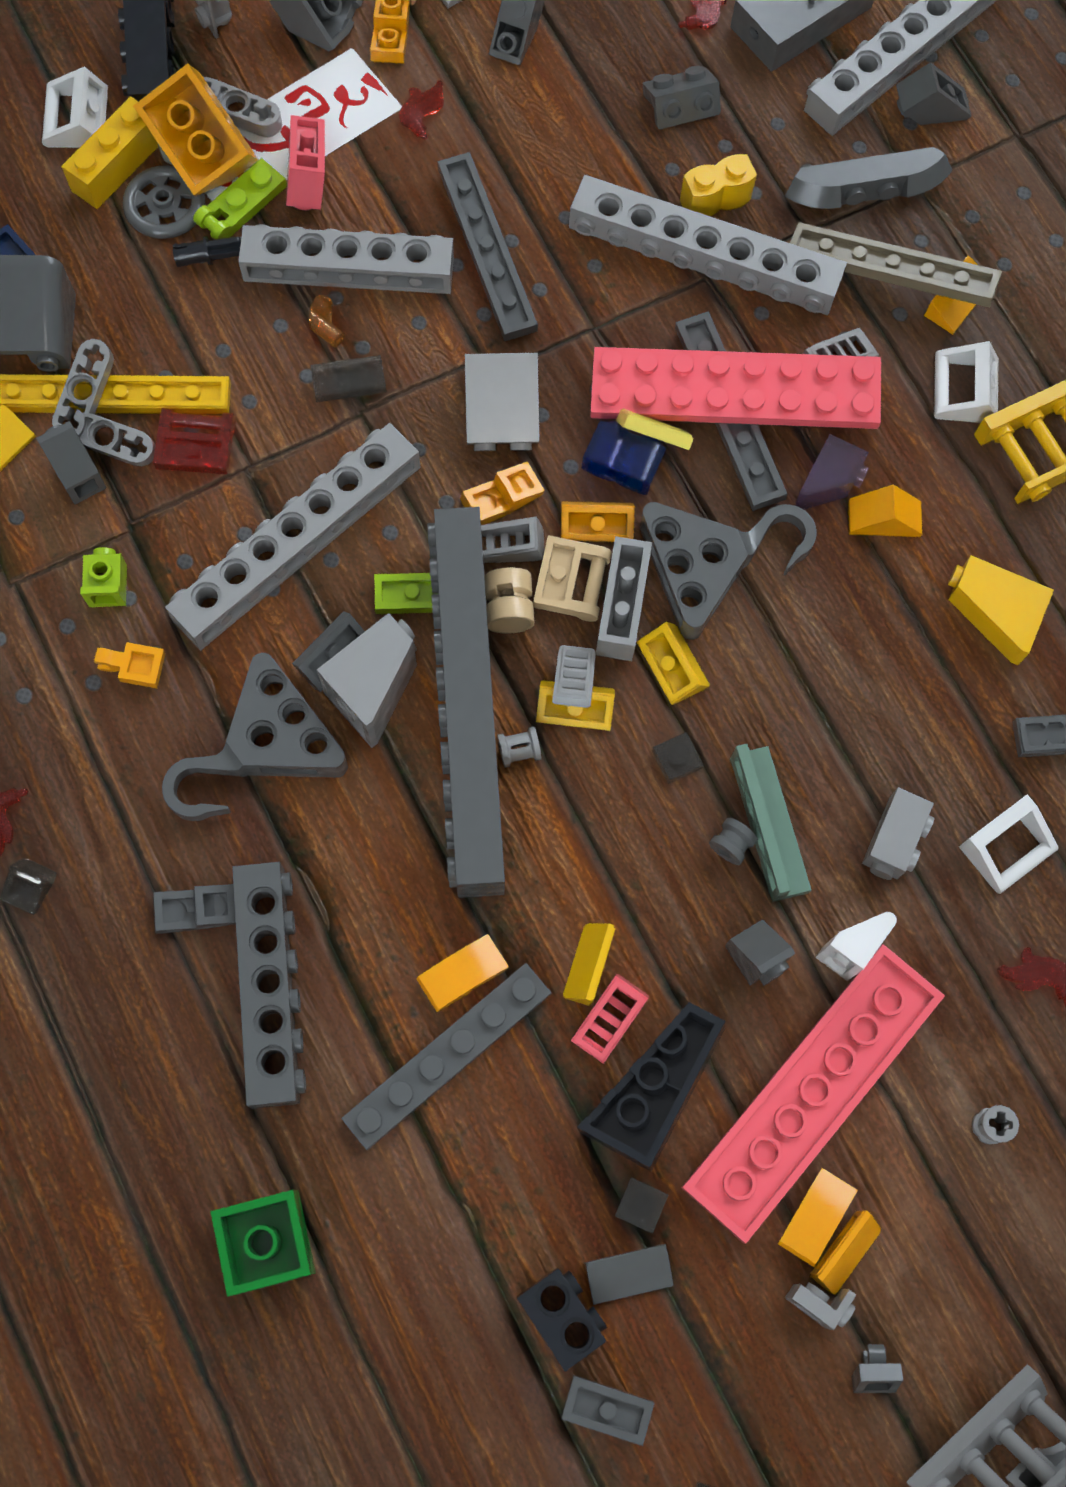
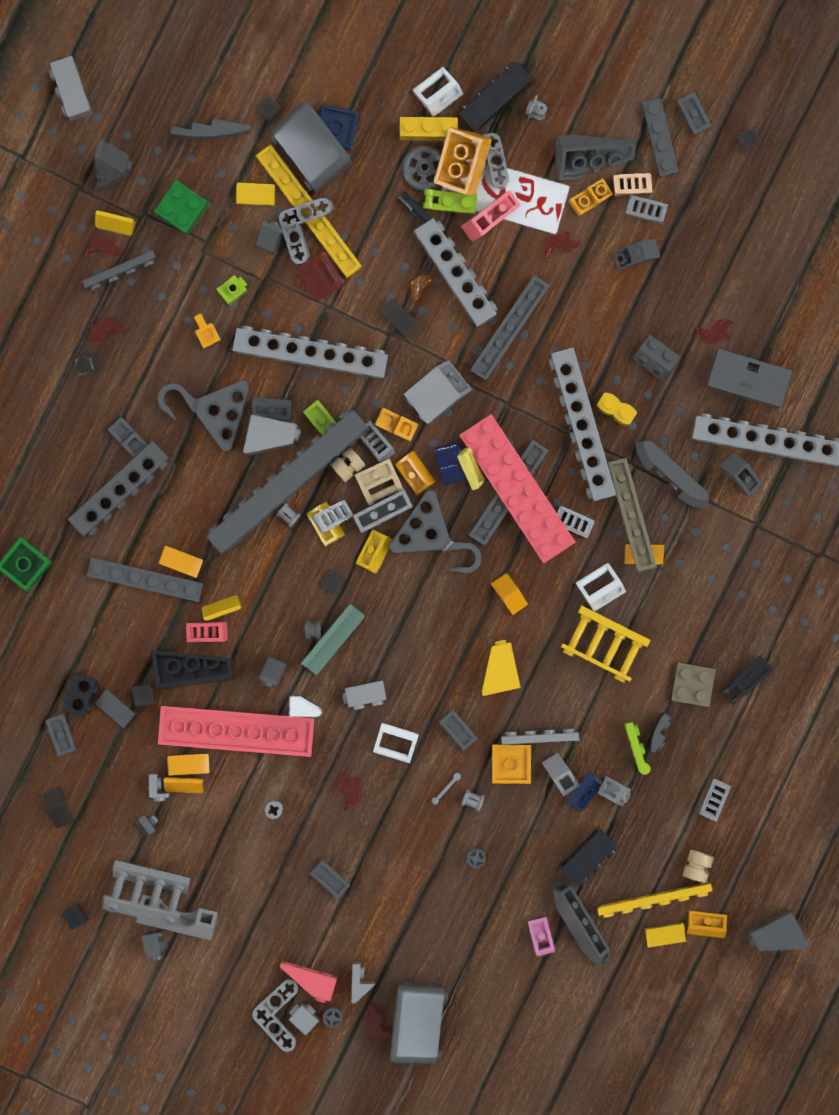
camera: 60 degrees right, 15 degrees up
(833, 473) = (510, 558): clear purple slope -> none

